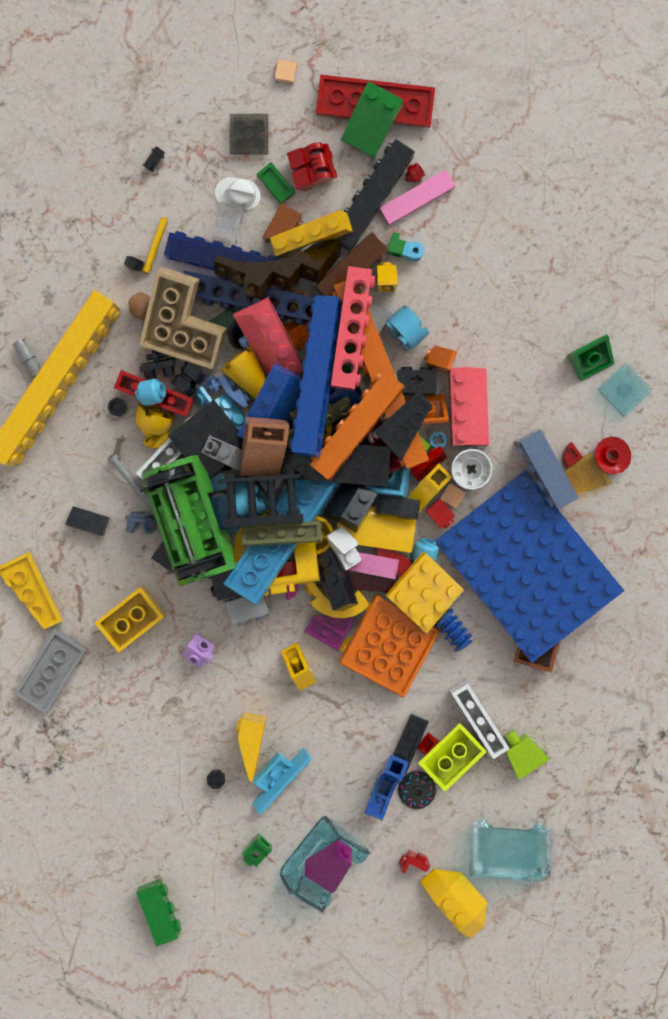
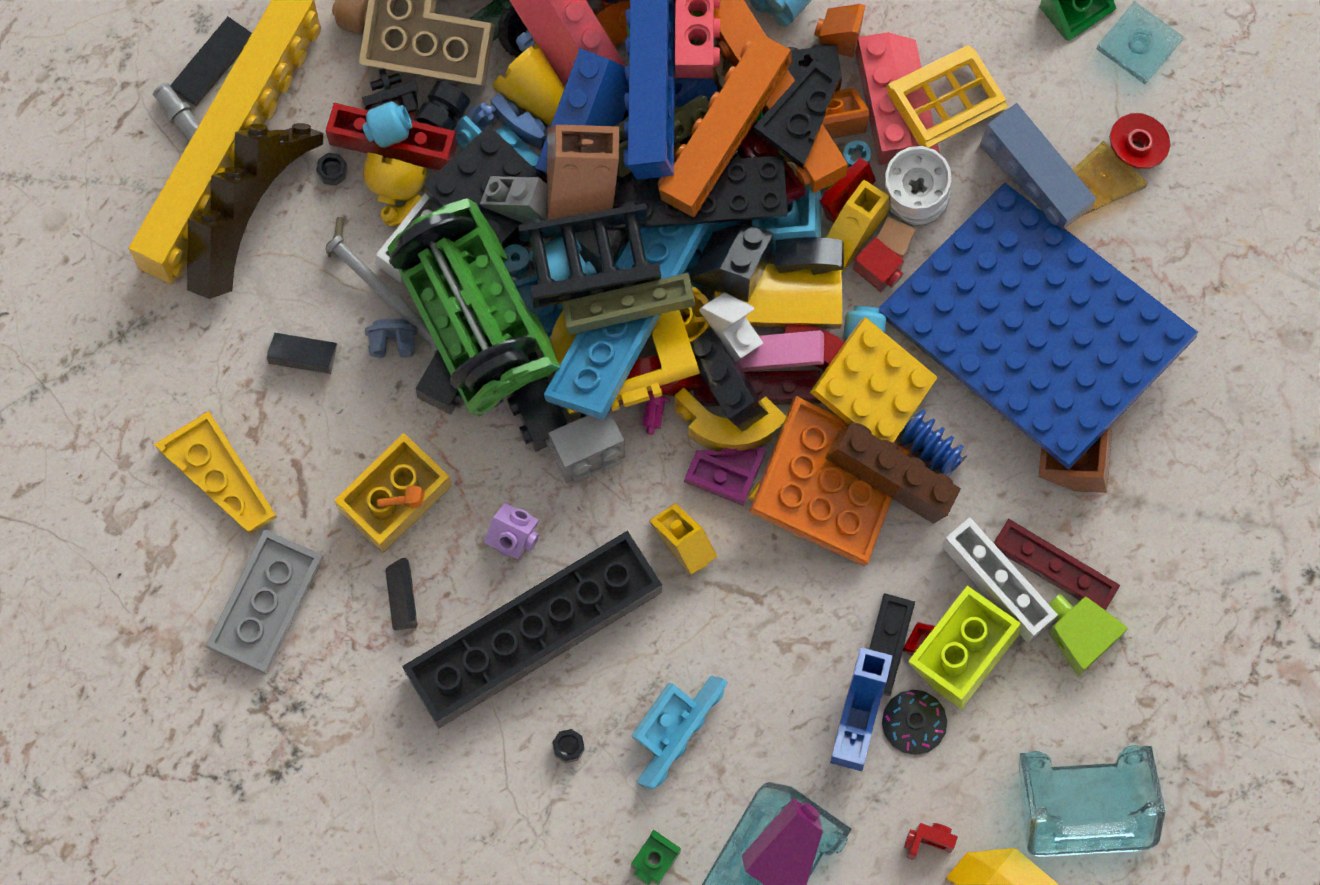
camera: 10 degrees left, 15 degrees down
(51, 325) = (211, 61): none -> black tile
(53, 424) = (235, 193): none -> dark brown arch
(131, 677) = (401, 595): none -> black slope
(139, 630) = (413, 498): none -> orange hand
(202, 712) = (532, 629): none -> black brick
(250, 738) = (618, 652): yellow slope -> none
(431, 651) = (893, 472): none -> reddish brown brick
(507, 428) = (934, 71): none -> yellow piece
(514, 710) = (1055, 565): none -> dark red tile
(571, 455) = (1074, 150): red tile -> none

